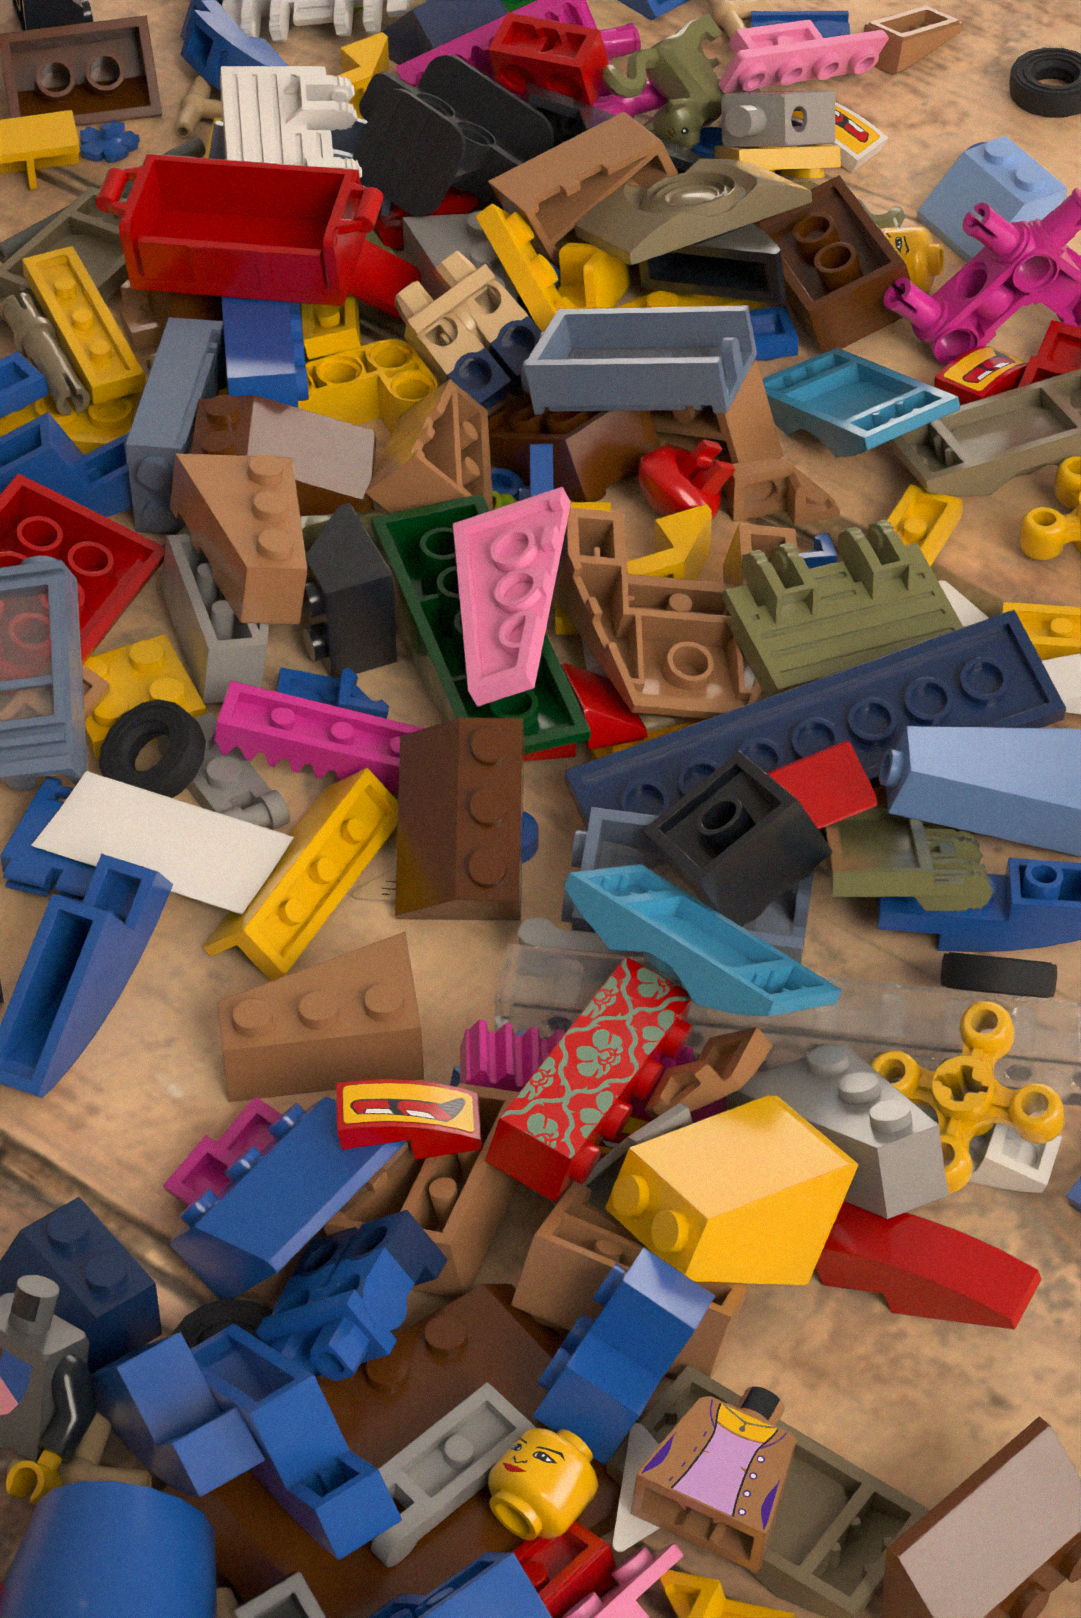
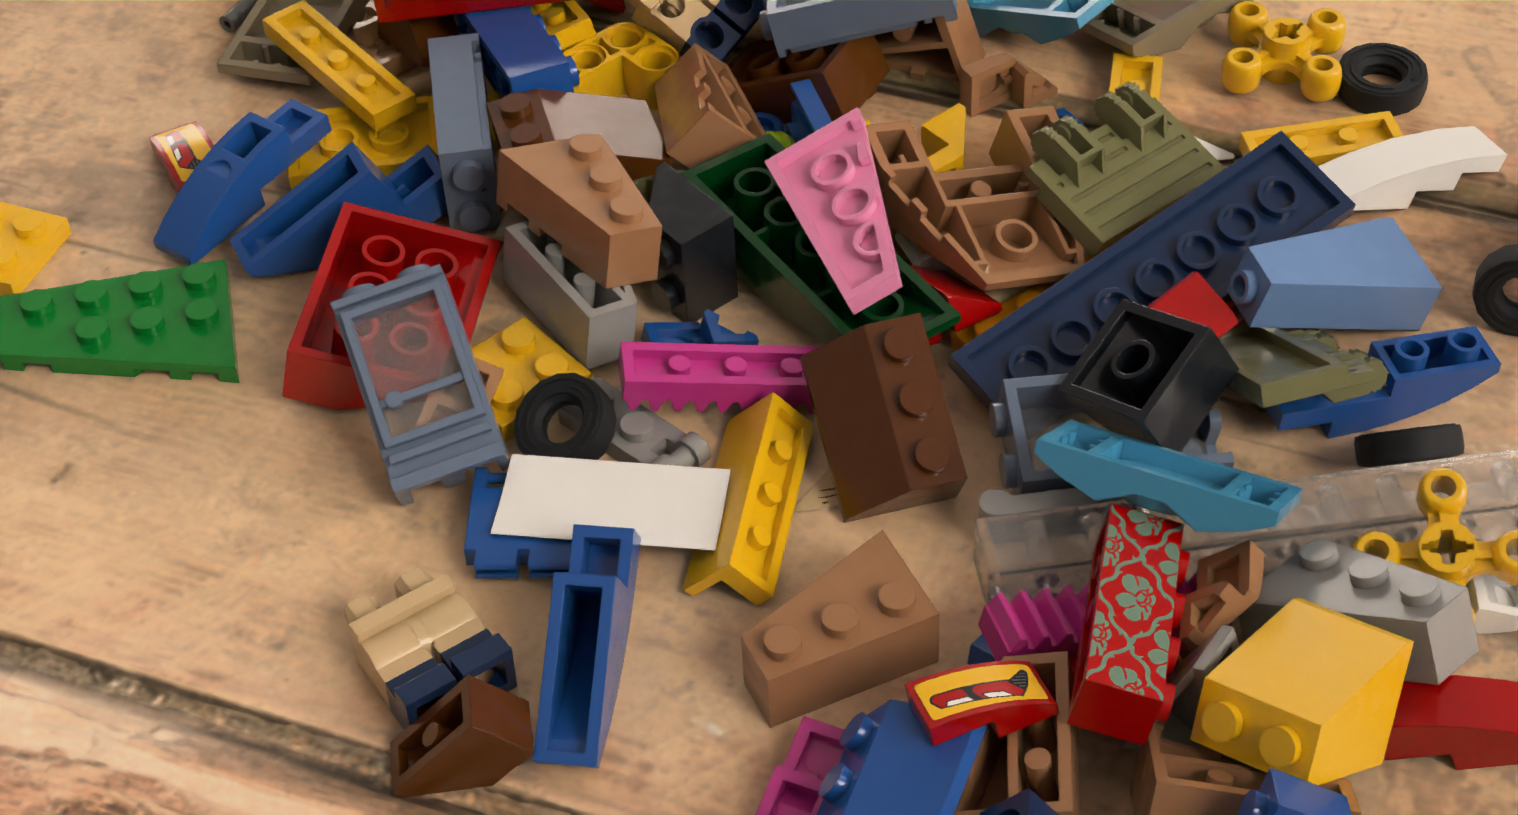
camera: 15 degrees left, 0 degrees up
(37, 341) = (301, 84): dark tan pin -> none
(683, 479) = (925, 90): red piece -> none

